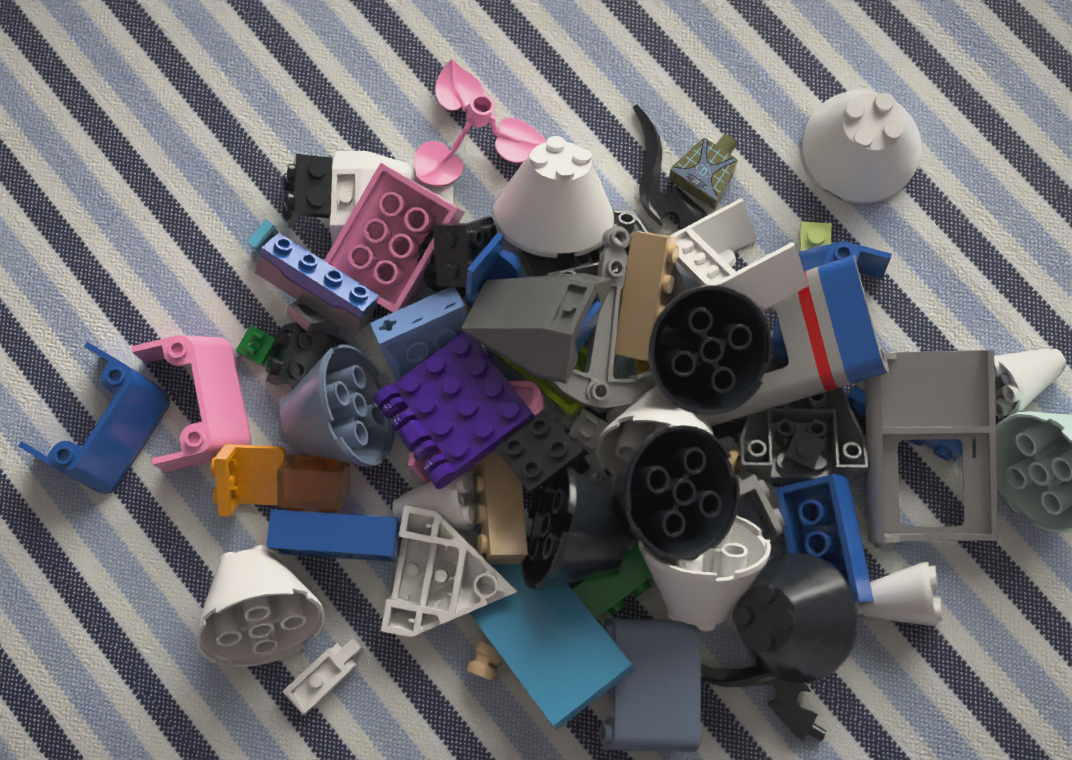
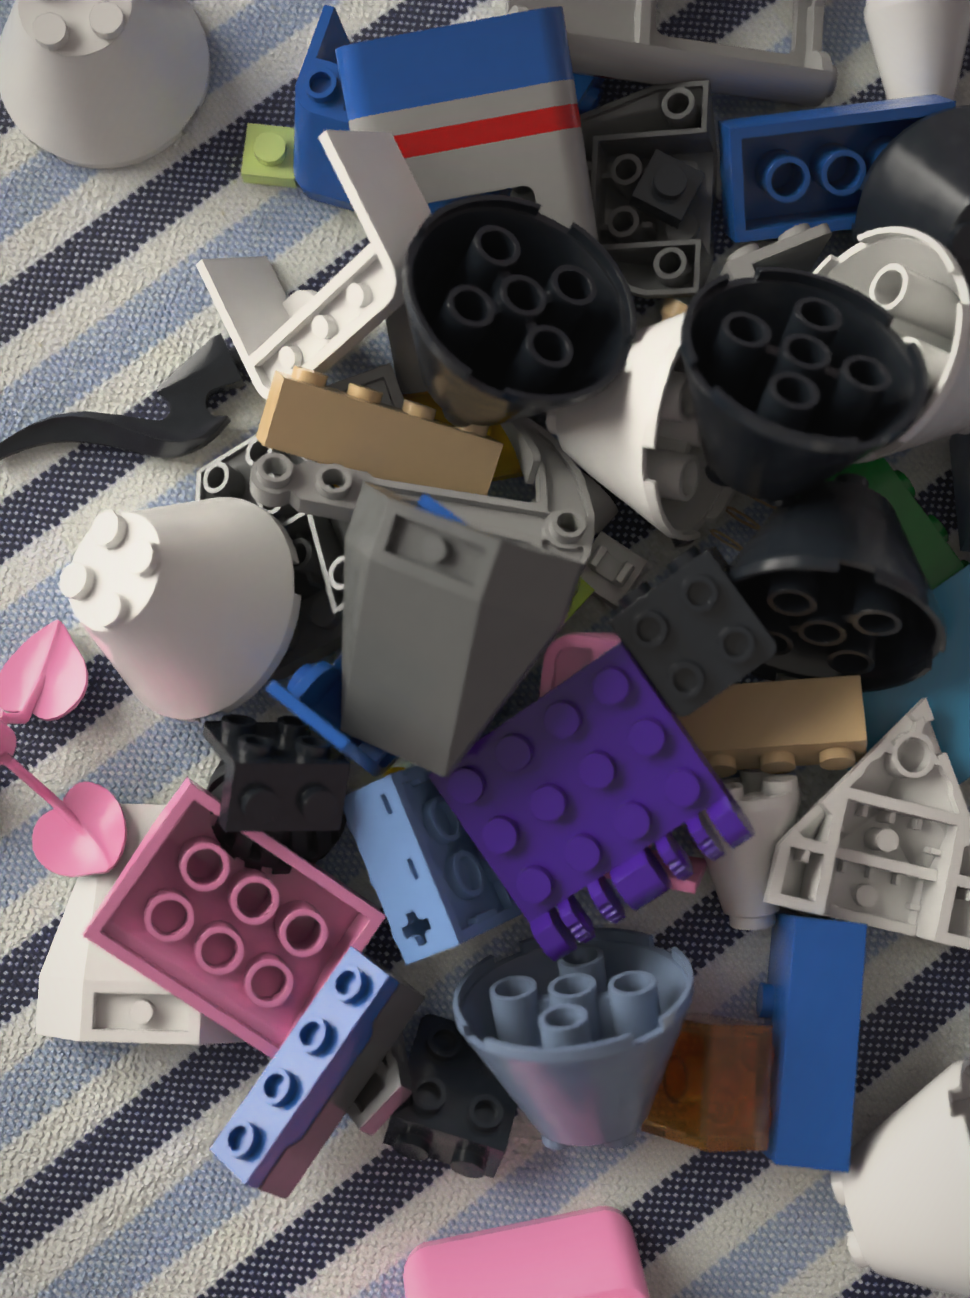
camera: 100 degrees left, 5 degrees up
(246, 476) = (686, 1216): light orange bracket -> none
(256, 346) = (422, 1197): green tile -> none
(262, 235) = (206, 1183): medium azure tile -> none
(308, 188) = (116, 1090): black bracket -> none
(706, 170) = (132, 329): olive torso -> none

